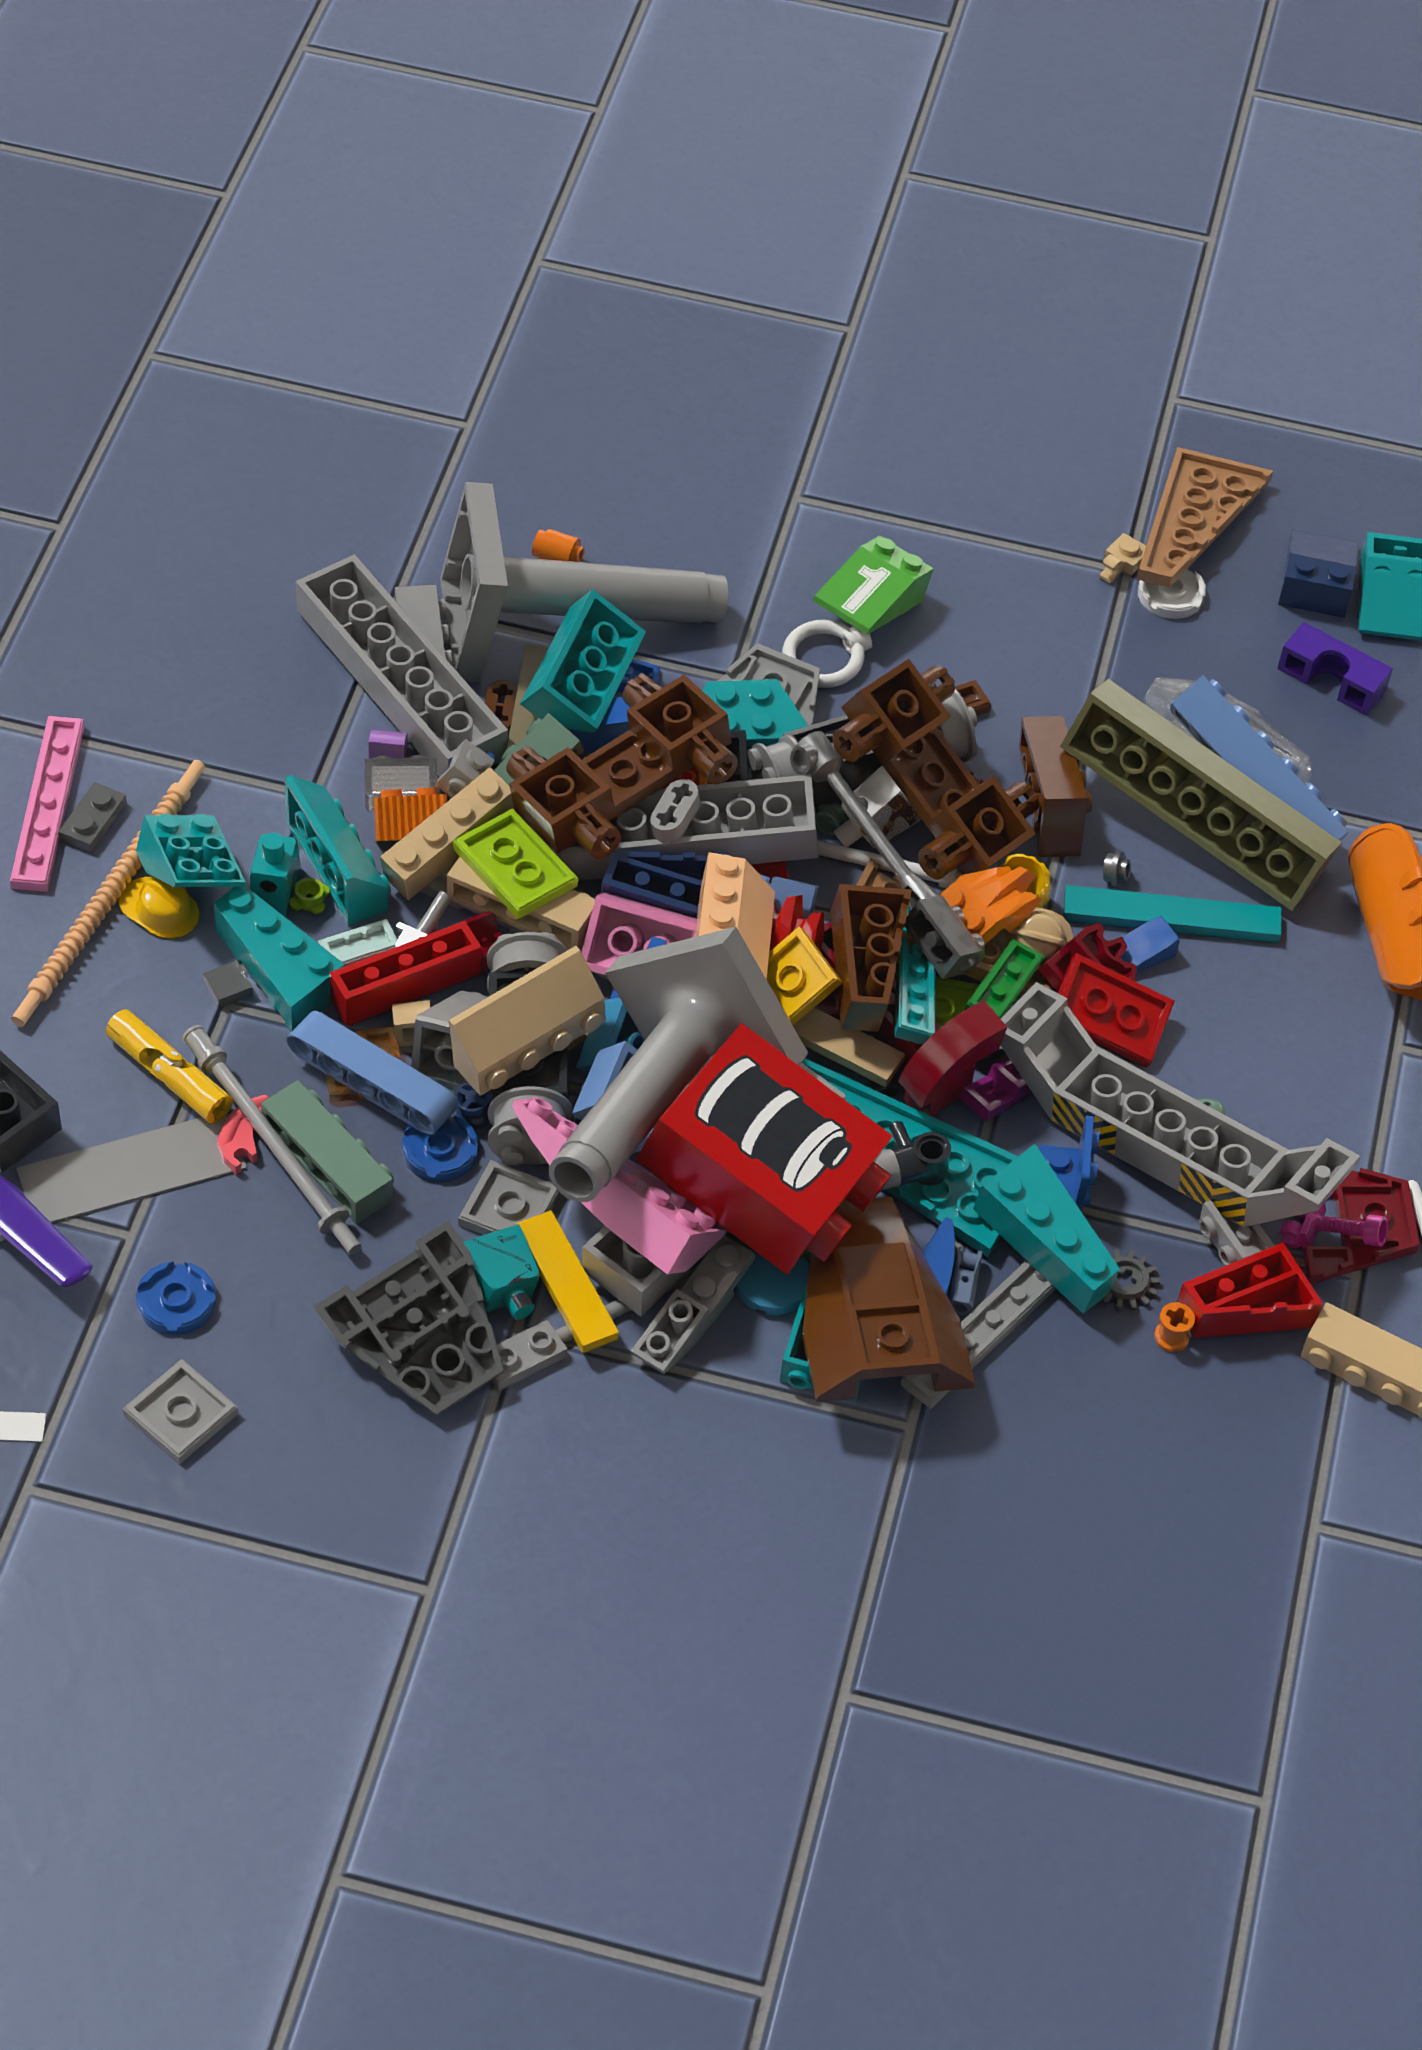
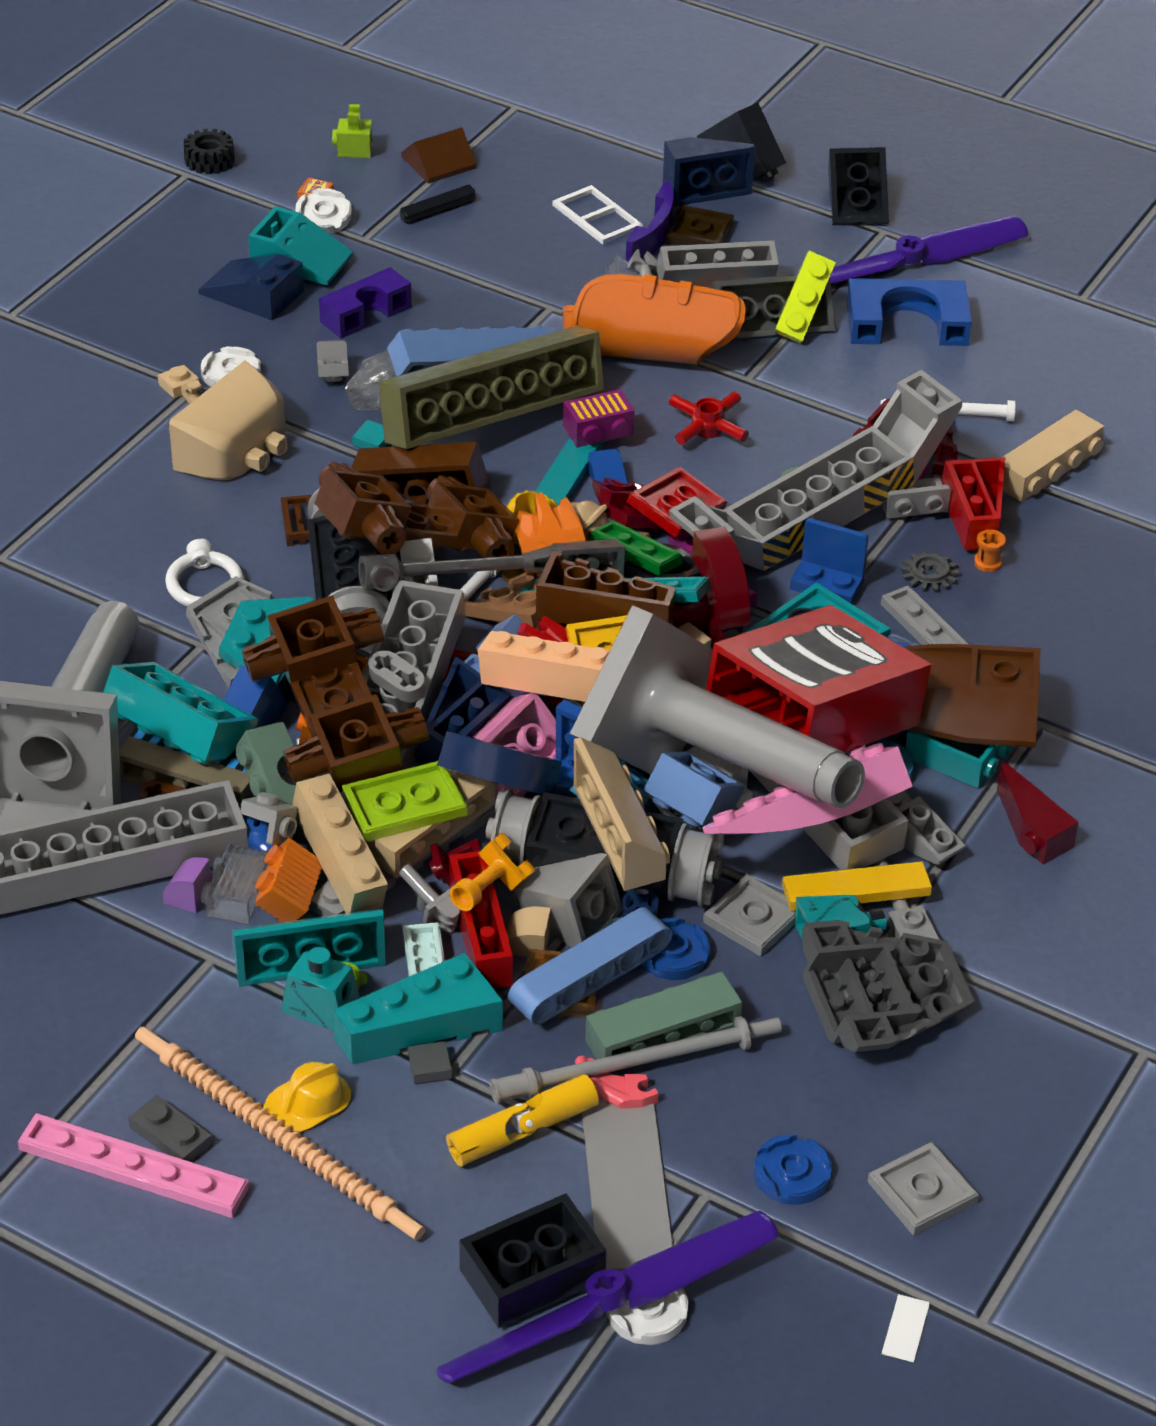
camera: 70 degrees left, 10 degrees down
(187, 851) = (285, 1041): teal slope -> none
(404, 940) = (468, 892): none -> light orange bar
(573, 917) = (499, 763): none -> dark blue arch
(734, 1430) = (1036, 820): none -> dark red slope
(875, 585) = (154, 519): bright green slope -> none
(1047, 1228) = (891, 583): teal wedge -> none
(1053, 606) = (230, 427): none -> tan hips
(1116, 868) = (524, 468): flat silver plate -> none
(1195, 508) = (158, 326): medium nougat wing -> none
(1219, 909) = (598, 418): none -> magenta brick
(1220, 666) = (332, 360): none -> light grey bracket
(1287, 1015) = (708, 418): none -> red bar

